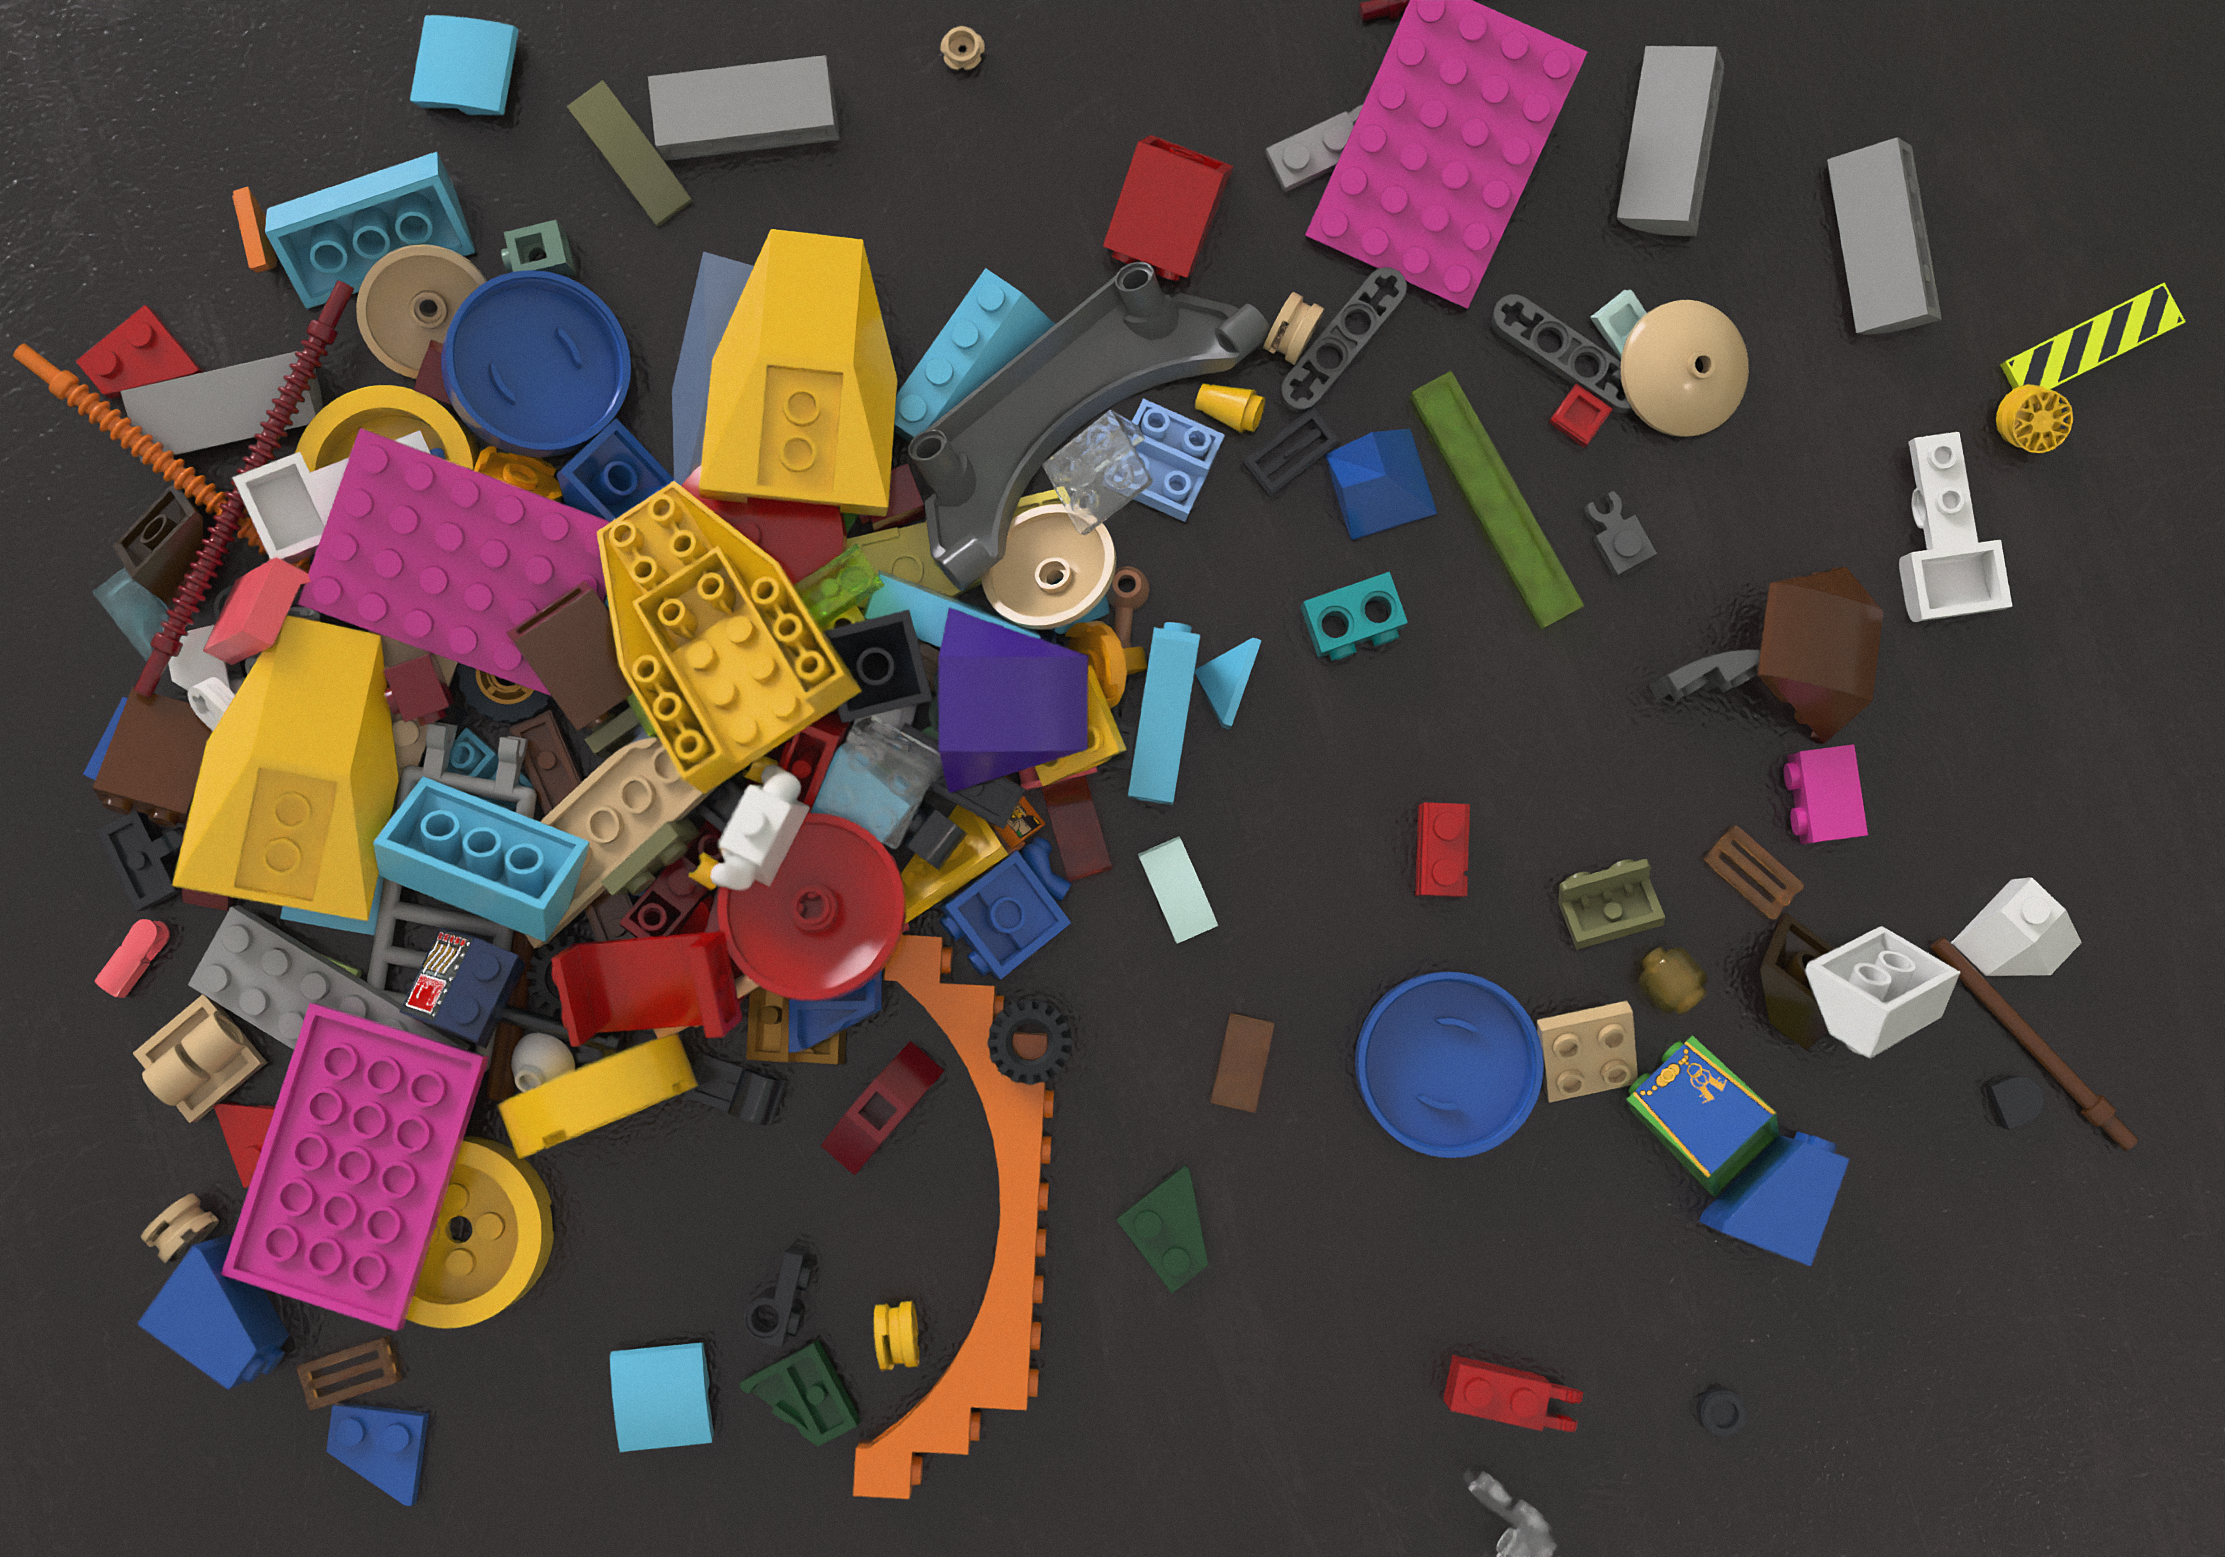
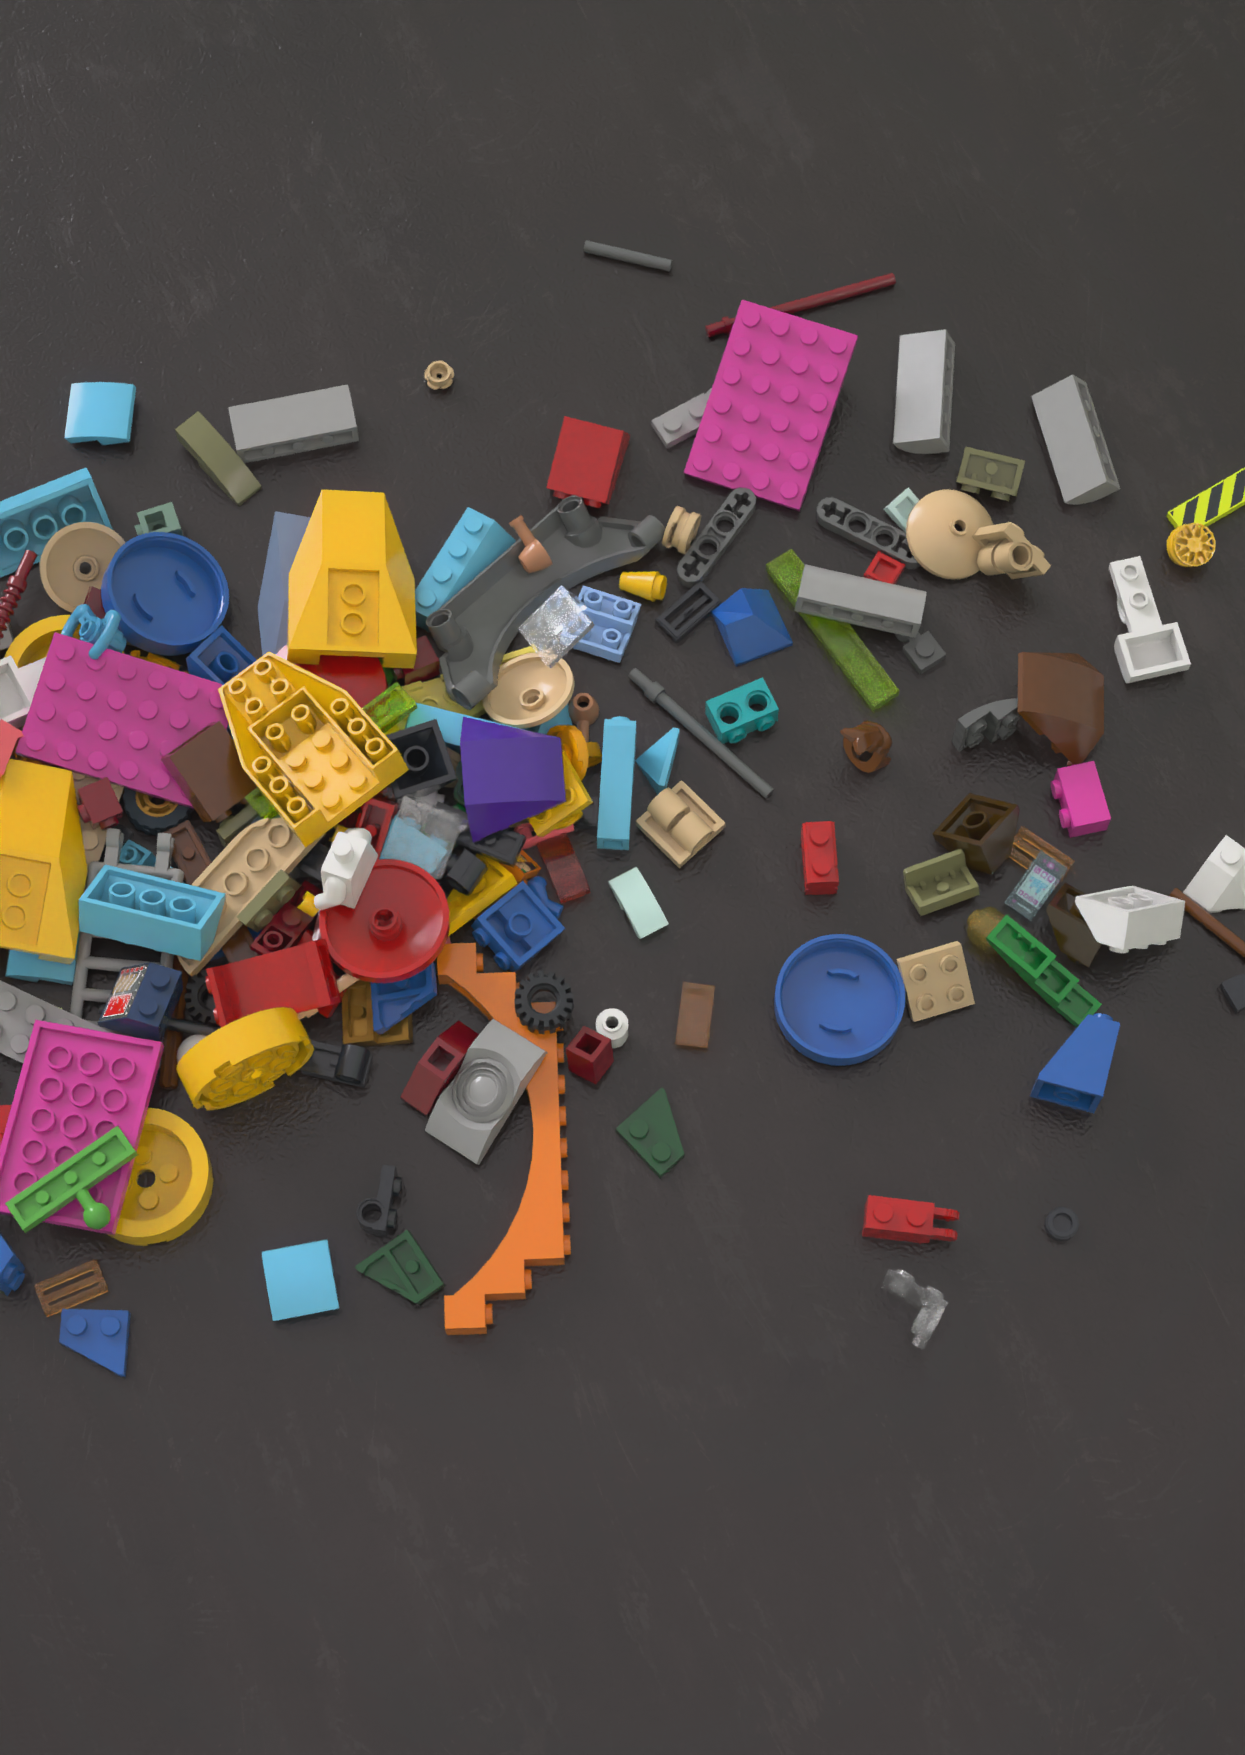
camera: 10 degrees left, 15 degrees down
(342, 1257) = (73, 1181): none -> bright green plate
(424, 426) = (97, 631): none -> dark azure piece
(896, 1335) = (470, 1218): yellow wheel -> none
(938, 1153) = (484, 1090): none -> light grey slope
(1074, 351) = (533, 556): none -> nougat bar
(1088, 1115) = (589, 1054): none -> dark red brick
(1123, 1063) = (616, 1018): none -> white brick
(1232, 573) = (656, 693): none -> dark grey bar
(1249, 777) = (679, 823): none -> tan plate
(1529, 685) = (871, 738): none -> reddish brown hair
(1544, 464) = (860, 601): none -> light grey brick
(1676, 829) = (982, 830): none -> dark brown slope
(1703, 1114) = (1022, 1017): slope -> none
(1742, 1050) = (1041, 971): none -> green slope
(1746, 918) = (1036, 885): none -> clear light blue tile
(1753, 278) = (990, 472): none -> olive bracket
(1769, 412) = (1008, 552): none -> tan plate

